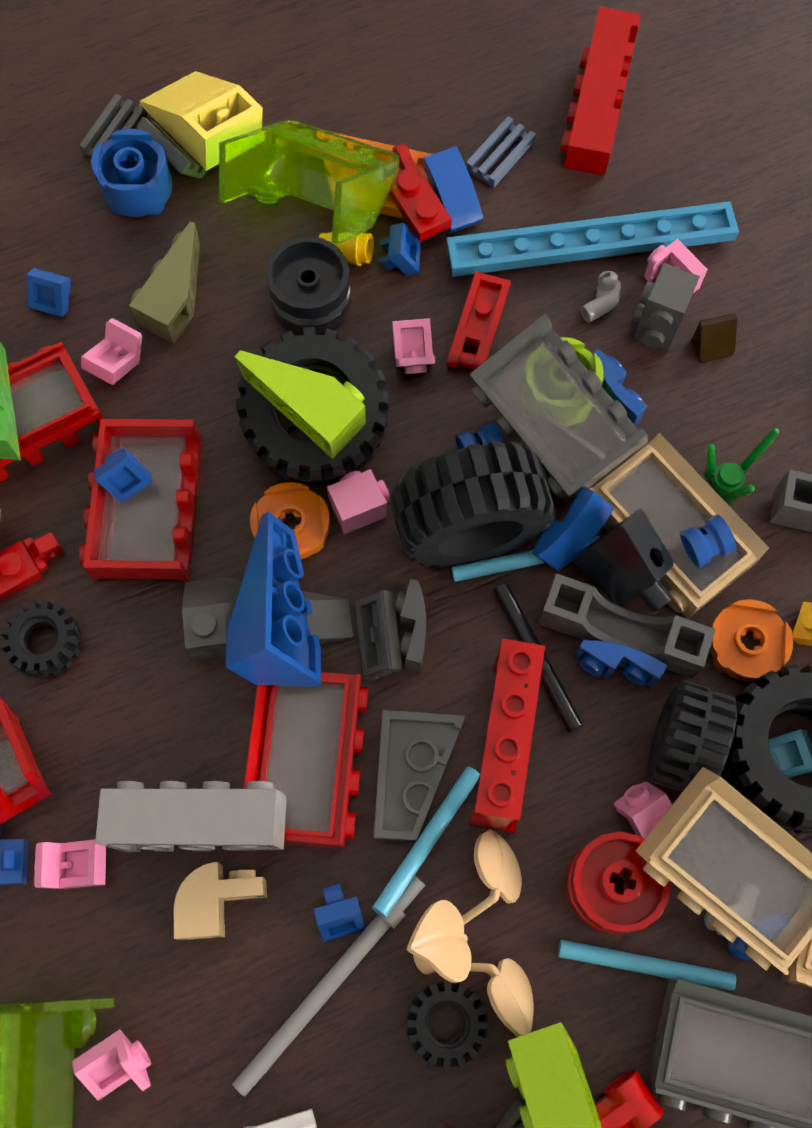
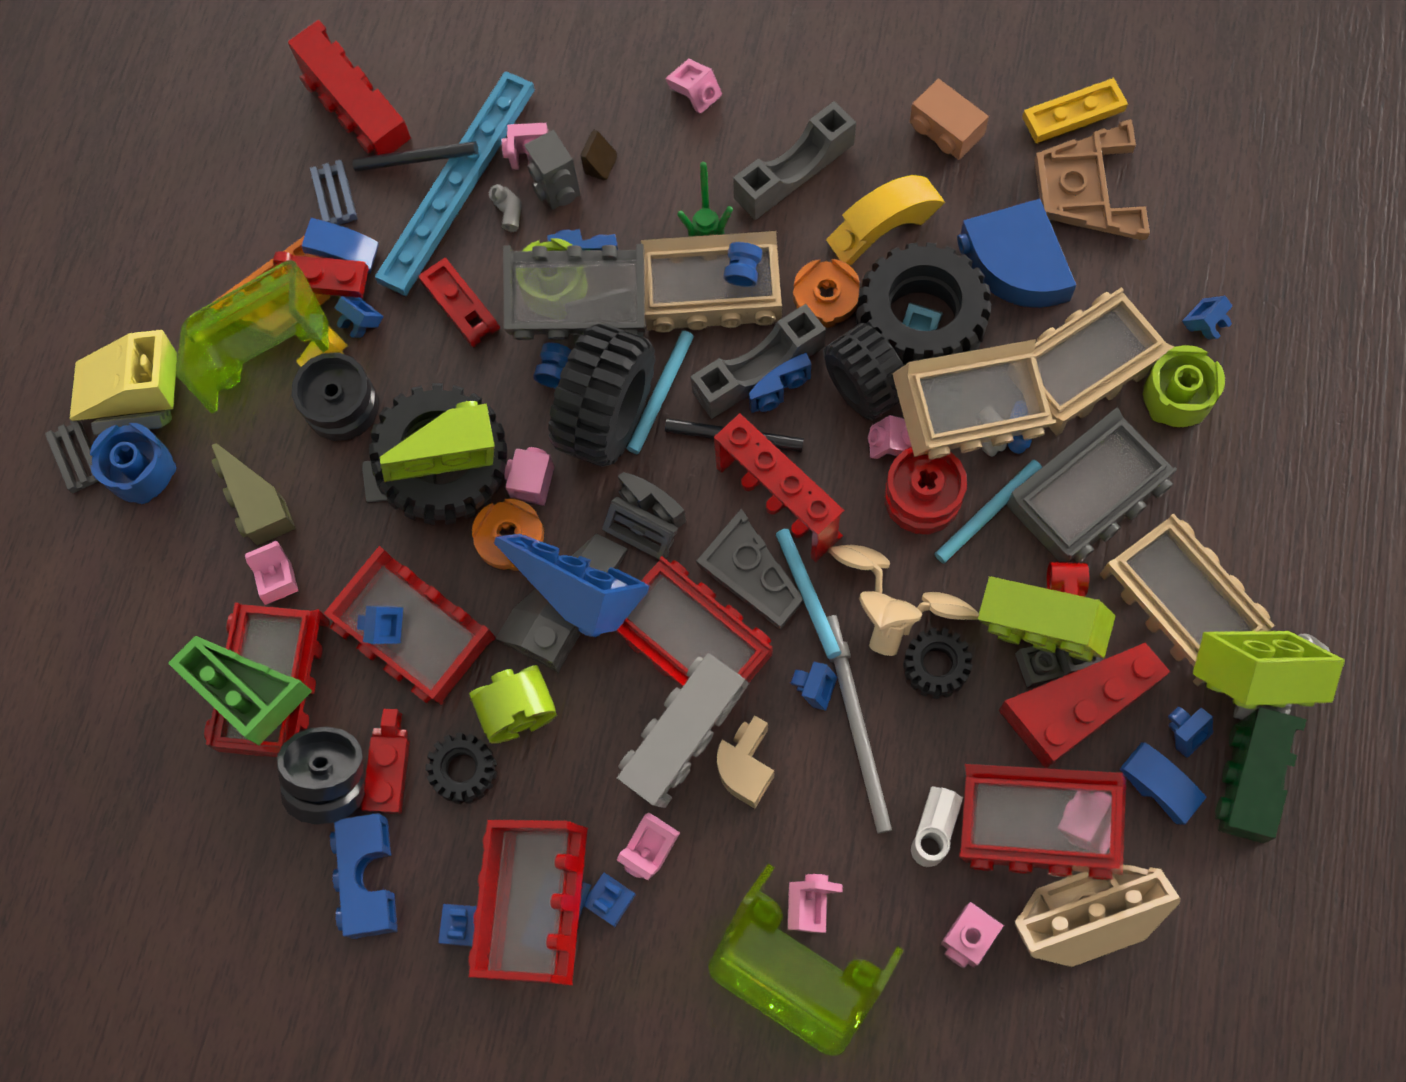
camera: 45 degrees left, 0 degrees up
(48, 292) = (179, 590): blue tile -> none
(124, 641) = (513, 704): none -> lime brick
(413, 345) = (440, 358): bright pink bracket -> none
(568, 539) = (670, 353): blue slope -> none
(587, 189) = (415, 156): none -> black bar
(629, 562) = (717, 325): black torso -> none

